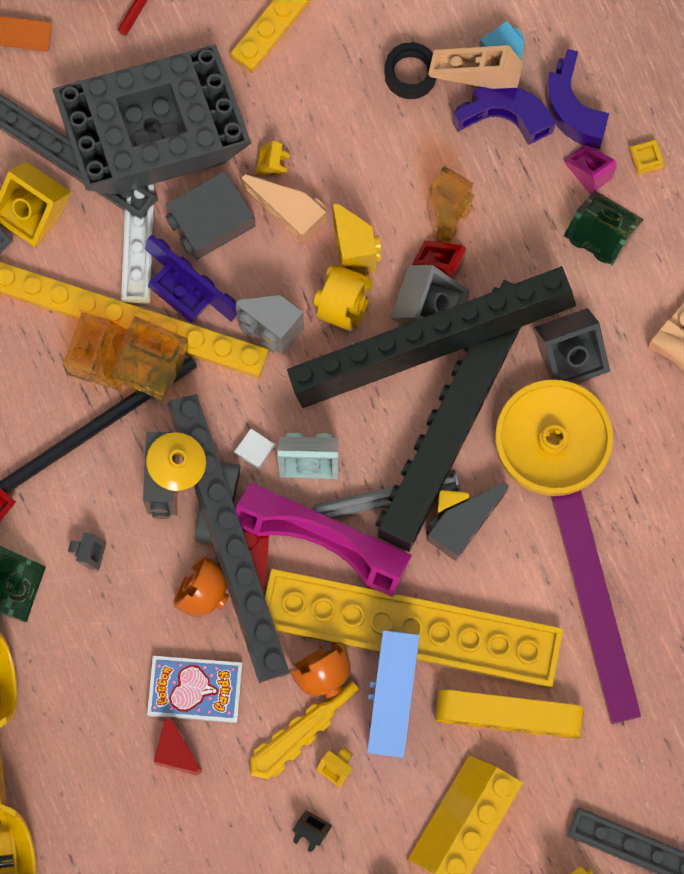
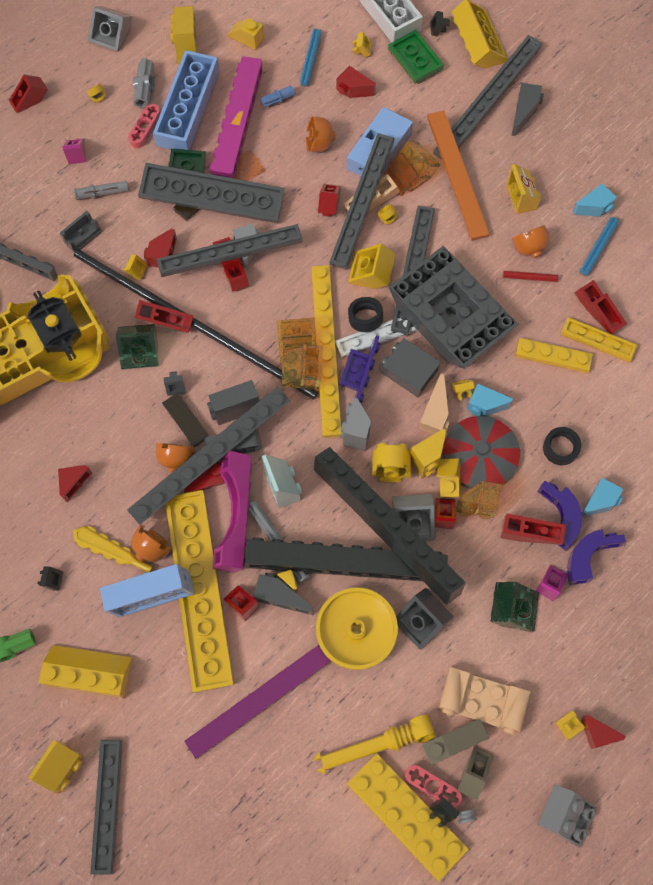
camera: 70 degrees right, 5 degrees down
(88, 228) = (361, 304): none -> black tyre
(149, 557) = (185, 419): none -> dark brown tile
(172, 475) = (243, 412): yellow dish -> none
(194, 689) = (114, 477): tile -> none
(254, 449) = (276, 449): white tile -> none
(305, 137) = (487, 401): none -> medium azure slope
(336, 767) = (94, 577): yellow tile -> none
(375, 175) = (485, 450): none -> dish
(396, 232) = (449, 476): none -> yellow slope
(454, 576) = (241, 602): none -> red slope
(478, 66) = (581, 481): light nougat slope -> none
(509, 714) = (165, 672): yellow beam -> none
(514, 159) = (532, 530): none -> red slope
(646, 157) = (578, 617): yellow tile -> none

